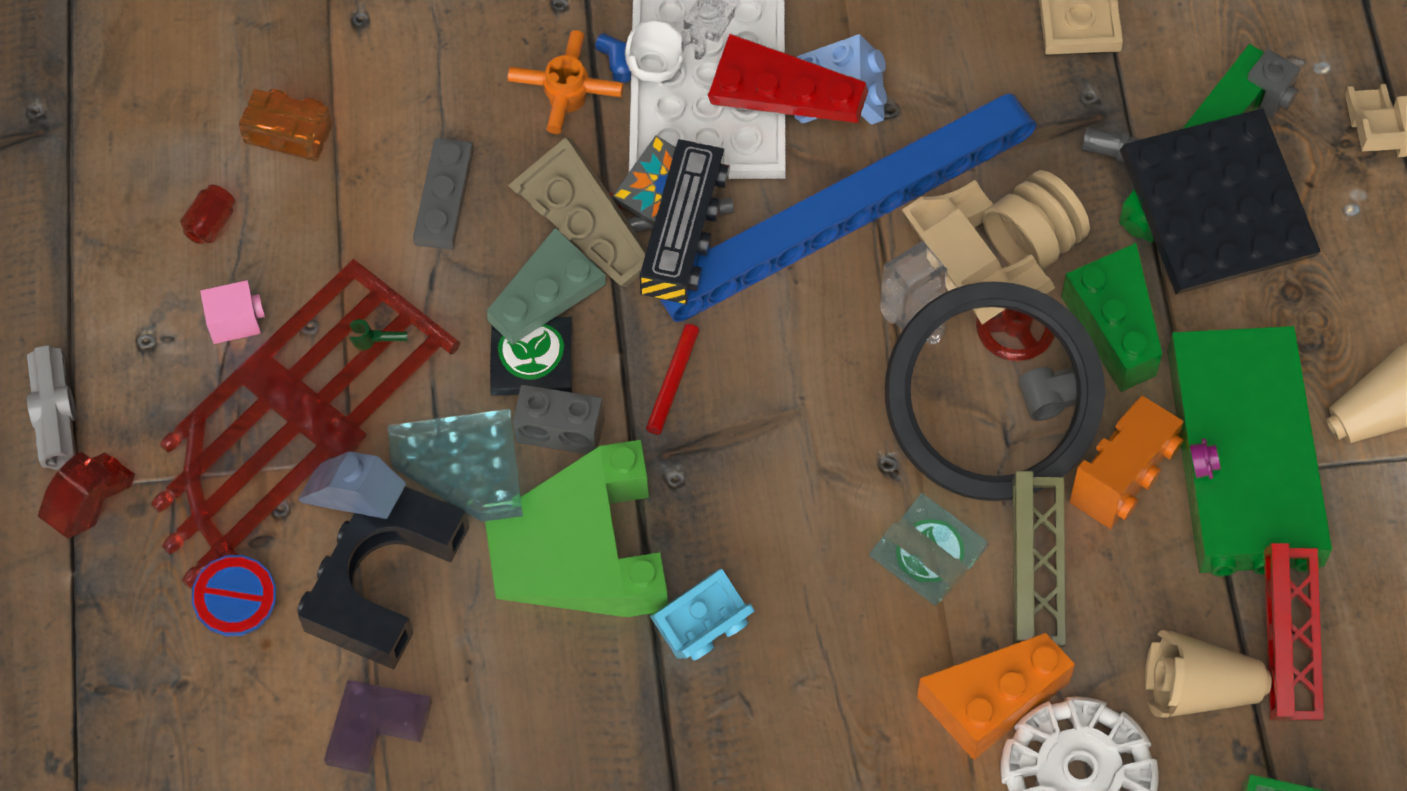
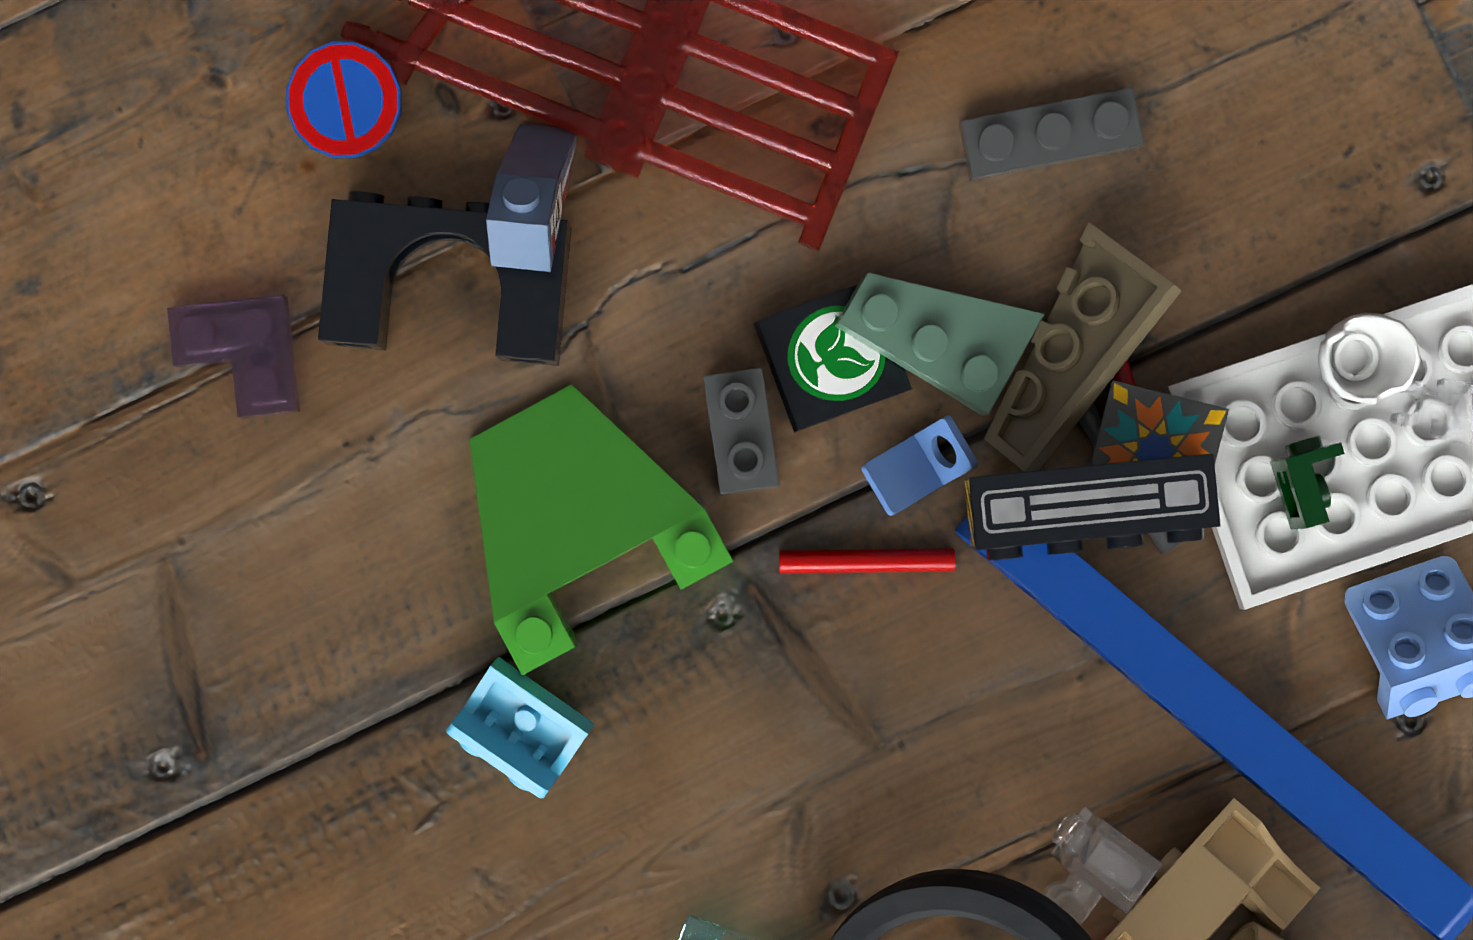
camera: 70 degrees right, 25 degrees up
(371, 336) = (778, 130): dark green hand -> none
(463, 461) = (636, 327): clear light blue plate -> none
(566, 82) = (1307, 241): orange bar -> none
(616, 51) = (1364, 298): blue arm -> none
(622, 331) = (917, 466): none -> medium blue bracket
(717, 112) = (1301, 490): none -> dark green bracket
(780, 83) = (1380, 565): red wing -> none

